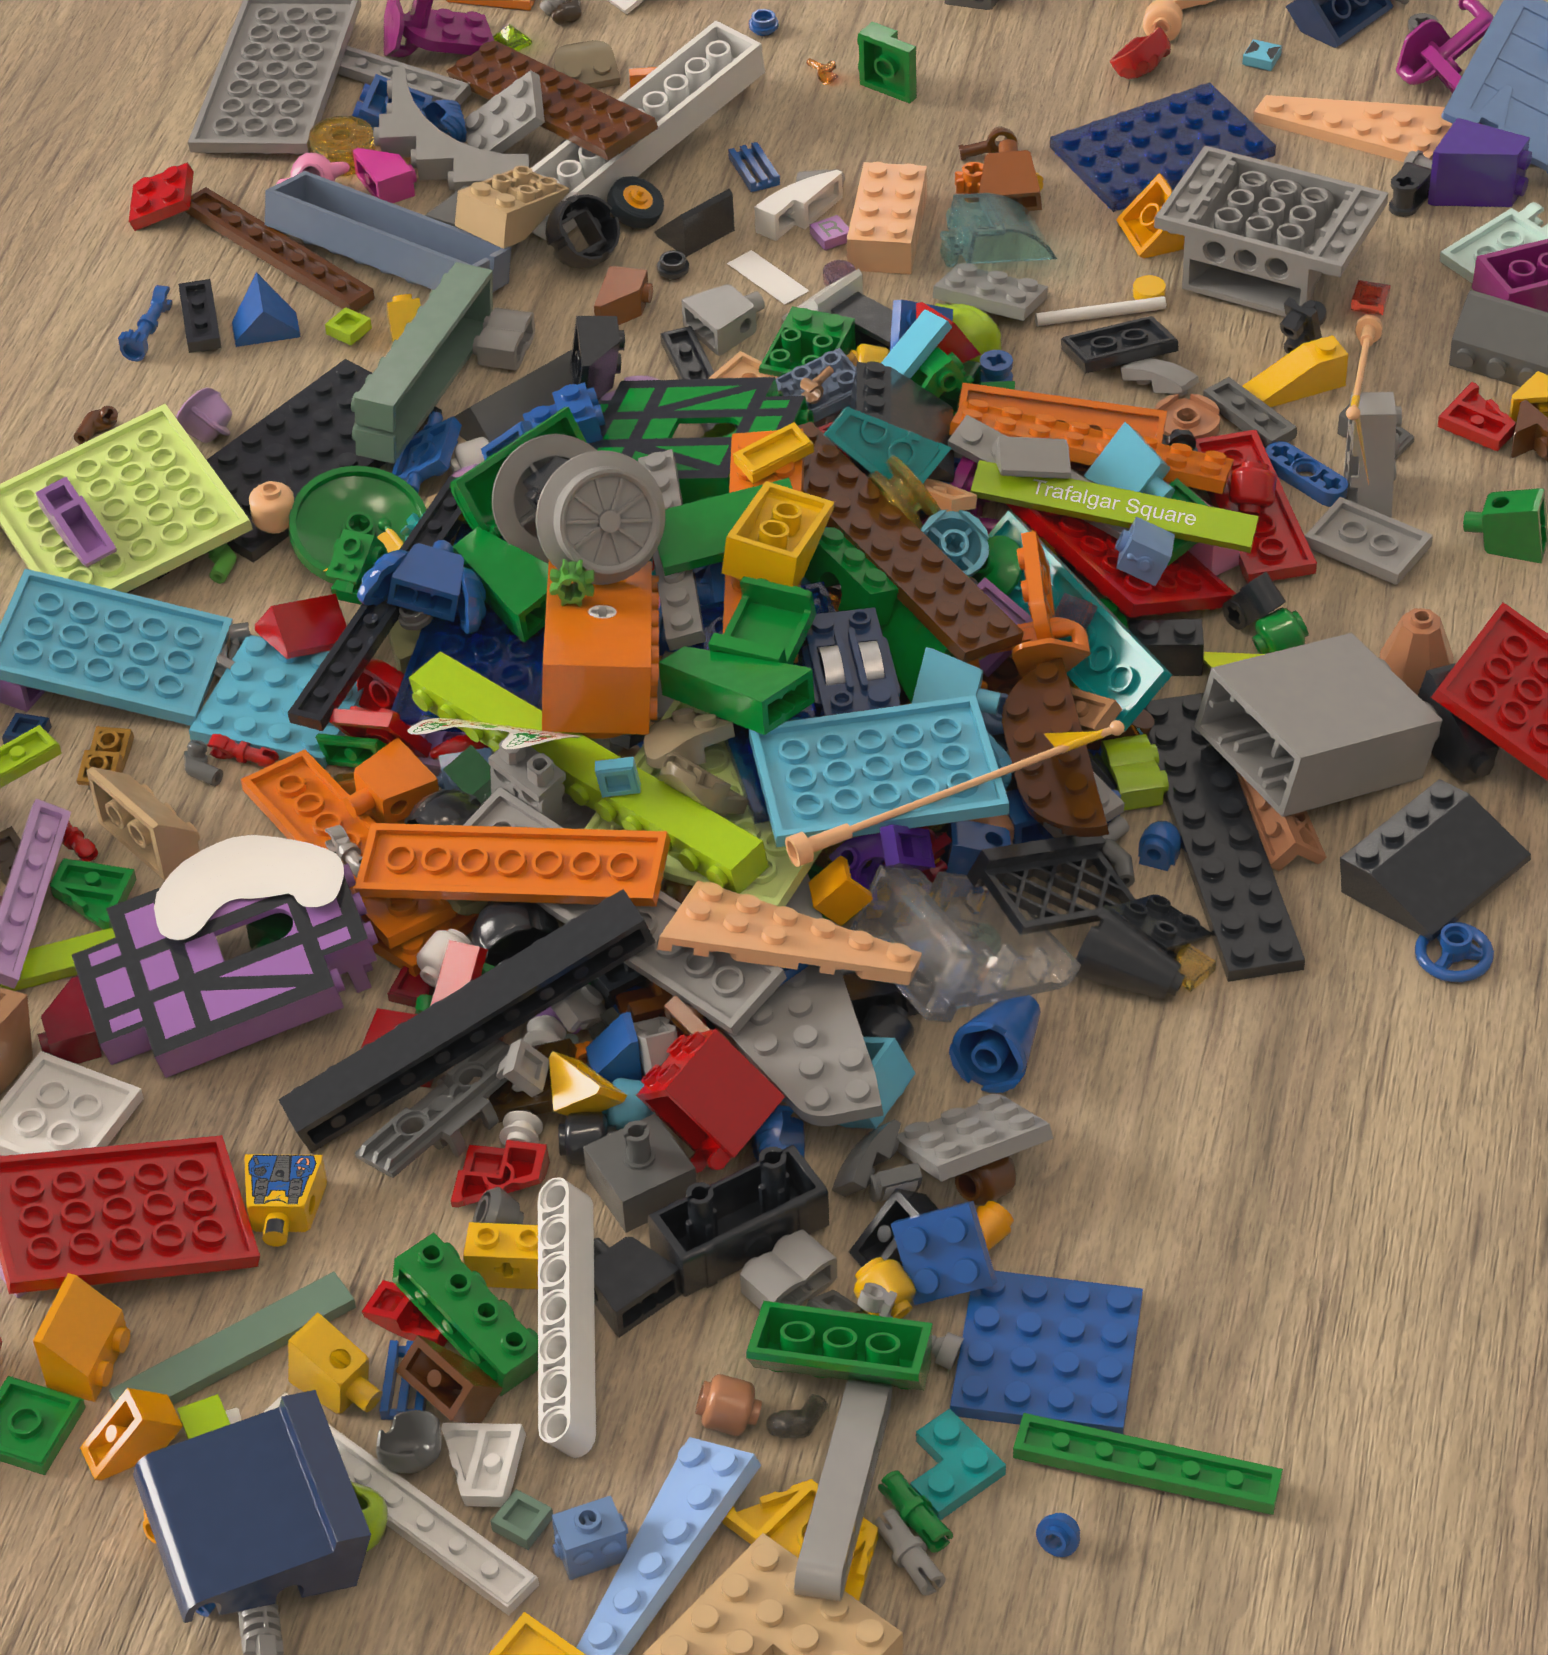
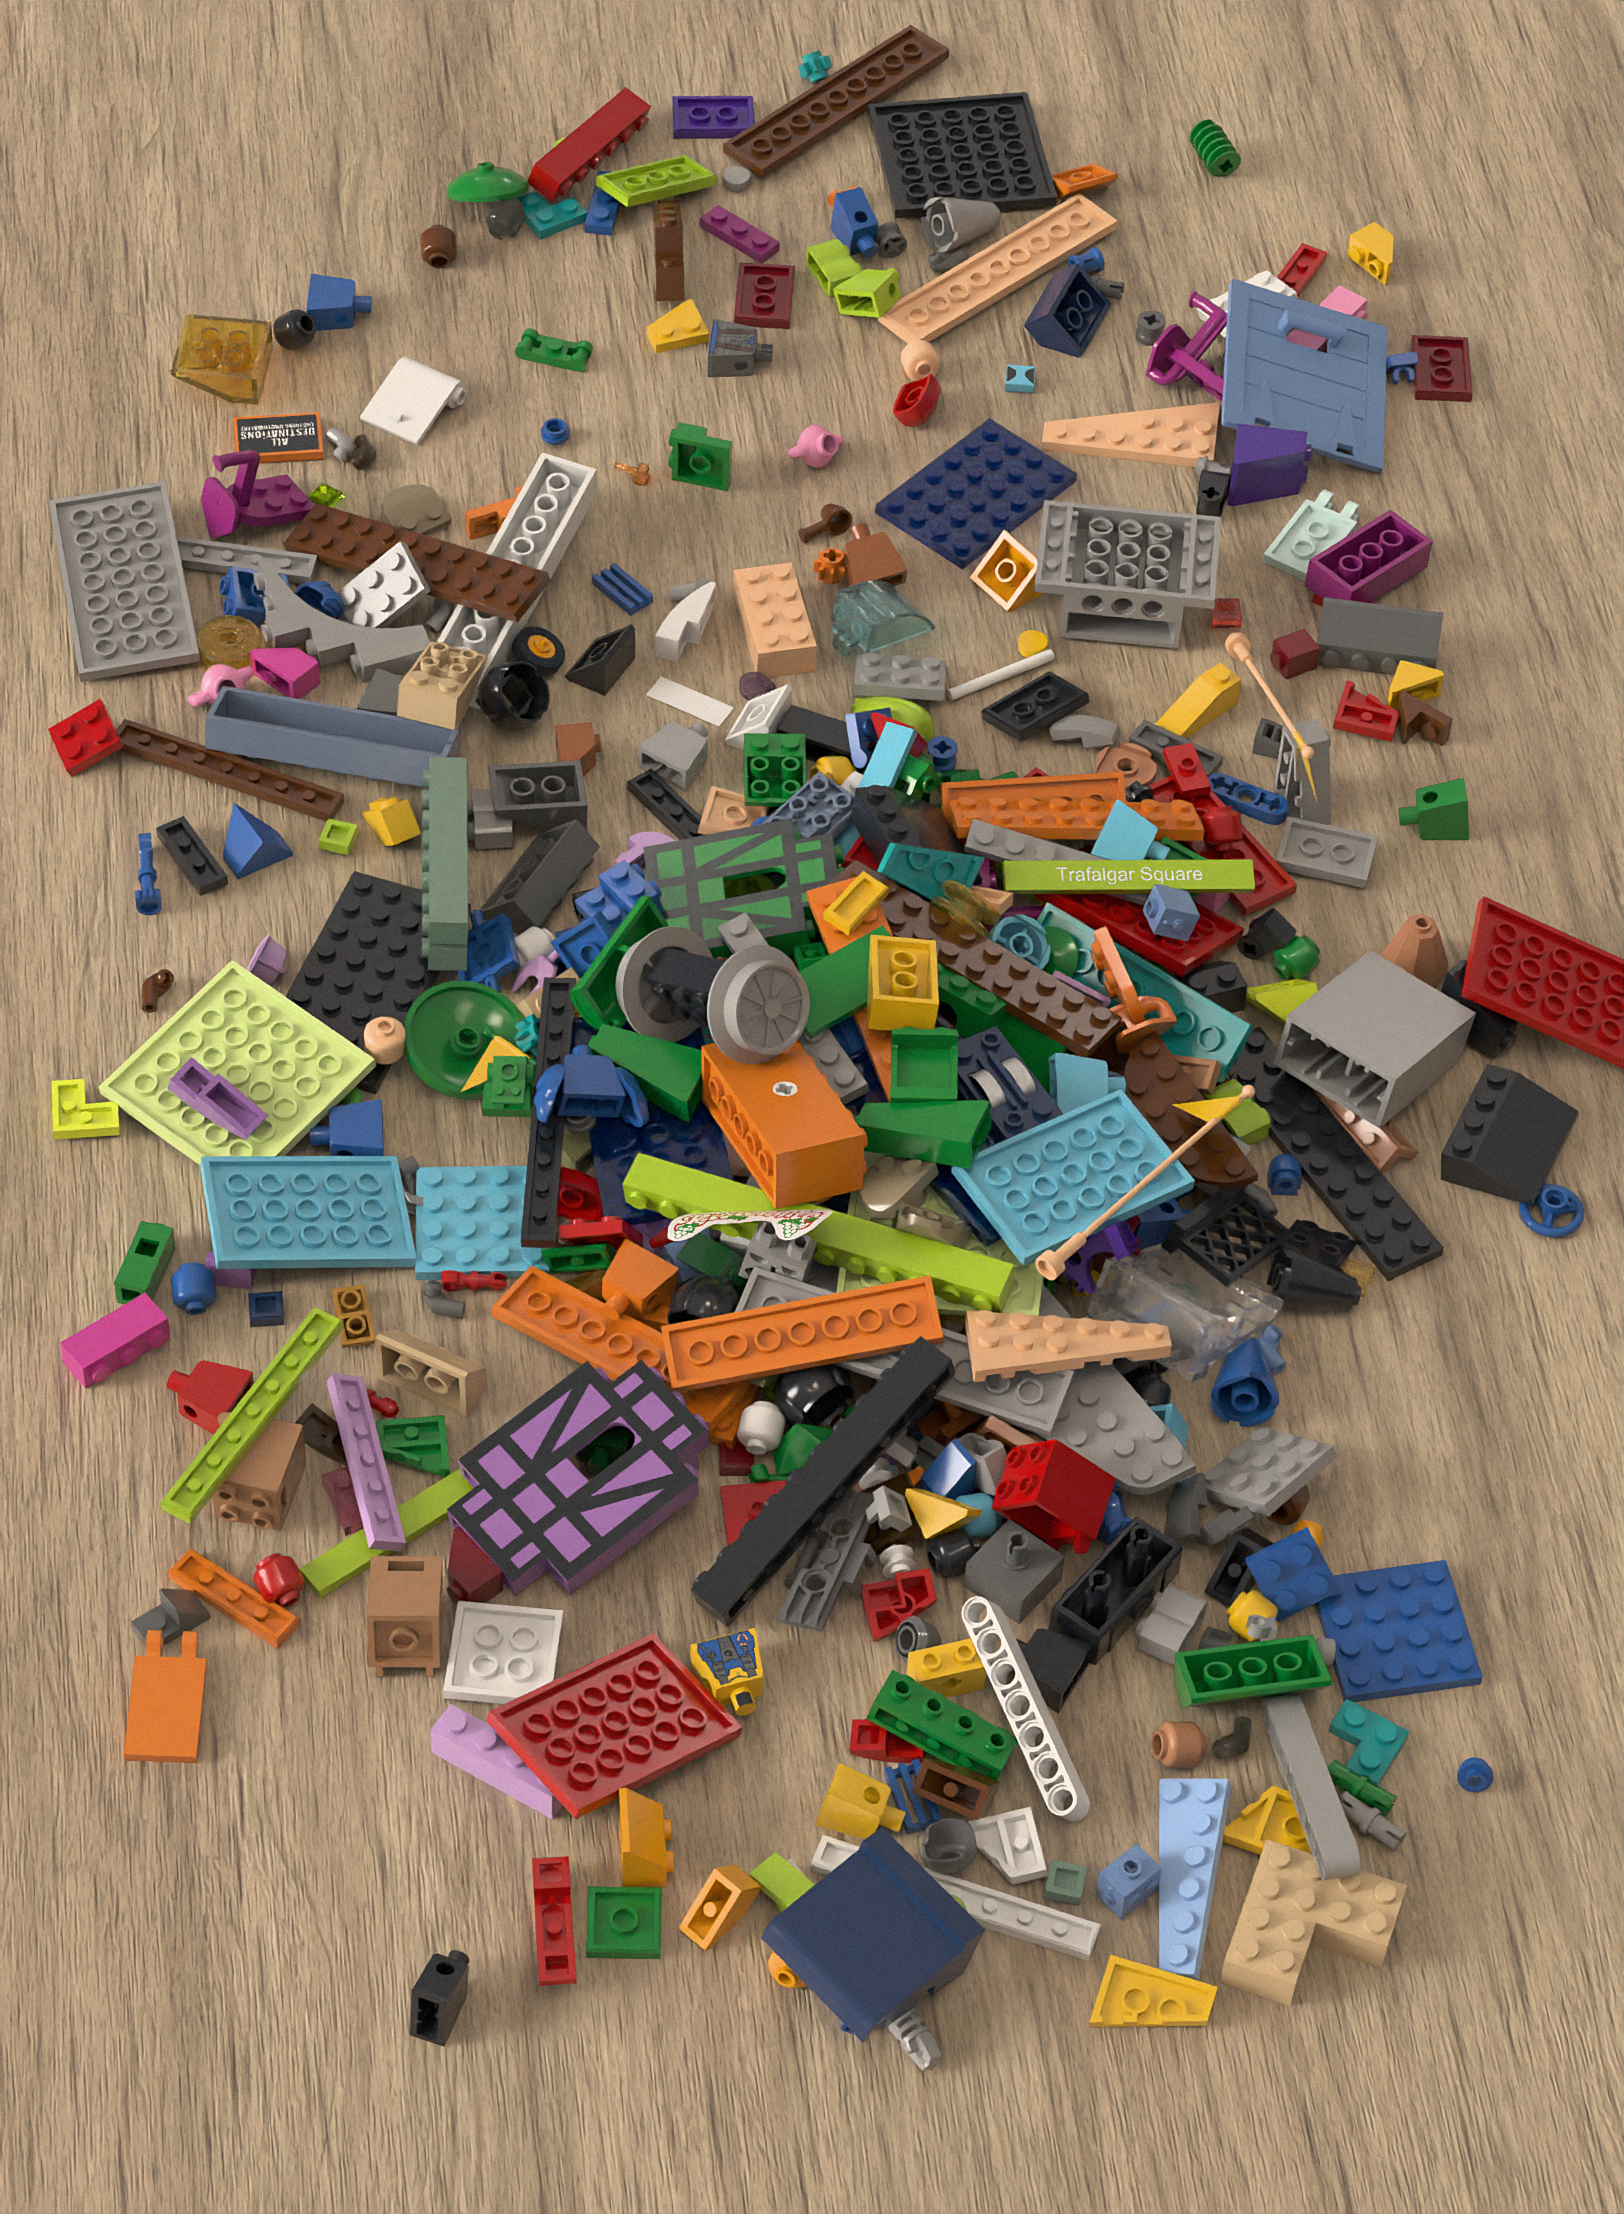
camera: 25 degrees left, 5 degrees up
(205, 585) = (352, 1130): none -> blue torso
(242, 1342) = (760, 1806): sand green tile -> none
(244, 870) = (569, 1395): white sticker -> none
(303, 626) = (473, 1151): red slope -> none
(346, 850) = (623, 1348): light grey piece -> none
(460, 965) = (788, 1444): tile -> none
(548, 317) = (539, 793): none -> dark grey slope
(563, 578) = (753, 1069): bright green gear -> none
(596, 352) = (606, 827): black slope -> none
(617, 777) = (867, 1236): medium azure tile -> none
(673, 265) = (602, 708): black plate -> none
(813, 388) = (819, 820): medium nougat hand -> none
(830, 232) = (726, 644): medium lavender tile -> none
(837, 893) = (1075, 1289): light orange panel -> none
(1014, 75) = (816, 446): none -> bright pink piece
(1033, 457) = (1051, 849): light grey slope -> none
(1052, 1014) = (1270, 1341): none -> medium blue arm
(1076, 610) = (1148, 984): tile -> none
(1148, 1463) = (1512, 1699): green plate -> none
(1247, 431) = (1186, 770): none -> red plate
(1302, 322) = (1187, 656): black hips -> none
(1426, 347) = (1294, 654): none -> dark red brick

